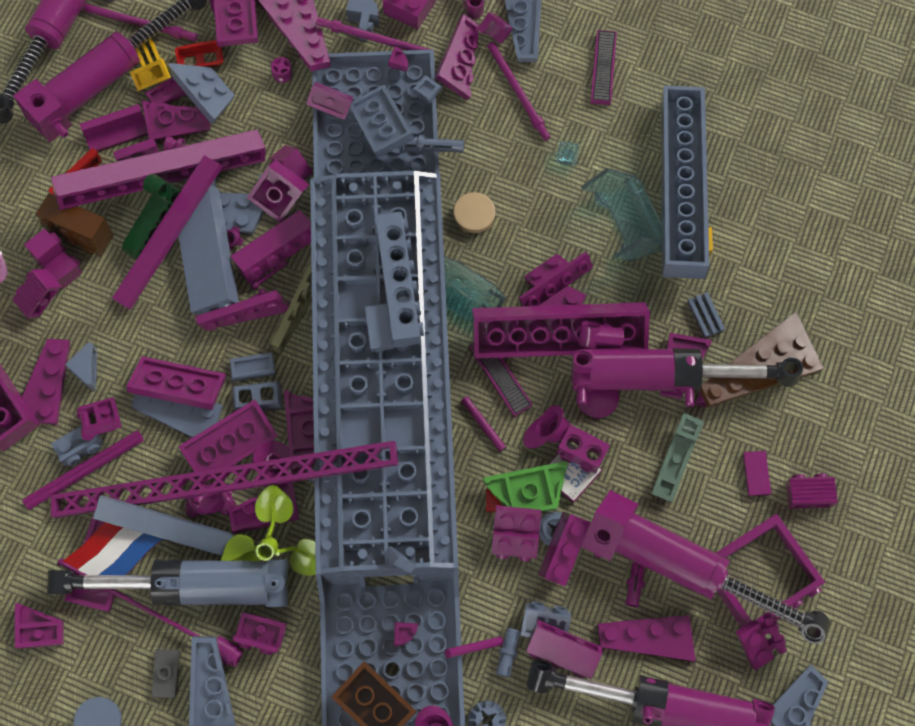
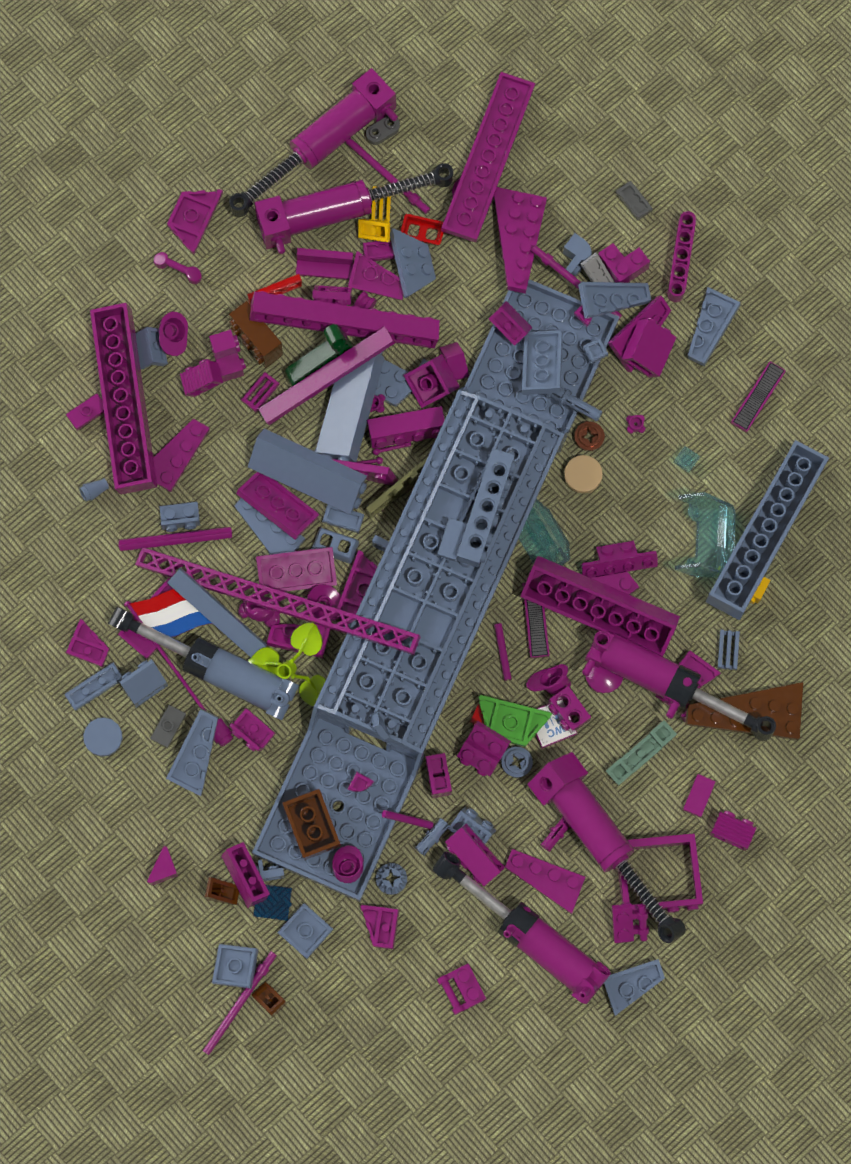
camera: 25 degrees right, 5 degrees up
(63, 670) = (94, 686): none -> sand blue tile
(84, 365) = (212, 456): sand blue slope -> none
(102, 297) = (250, 404): none -> magenta tile
(106, 417) = (211, 505): magenta plate -> none
(115, 639) = (143, 683): none -> sand blue slope
(192, 335) = (307, 471): none -> sand blue brick
(278, 66) = (485, 270): magenta wheel -> none
(303, 373) = (379, 543): none -> sand blue tile
(391, 20) = (596, 269): none -> light grey plate
(415, 35) = (609, 297): none -> sand blue wing
(462, 166) = (594, 429): none -> copper gear
(477, 65) = (649, 347): none -> magenta brick
(483, 583) = (438, 775): none -> magenta brick
(495, 27) = (683, 318): magenta panel -> none
(503, 138) = (639, 419): none -> magenta plate
(536, 121) = (676, 419): magenta bar -> none
(564, 548) = (513, 779): magenta brick -> none
(595, 335) = (623, 624): magenta piece -> none

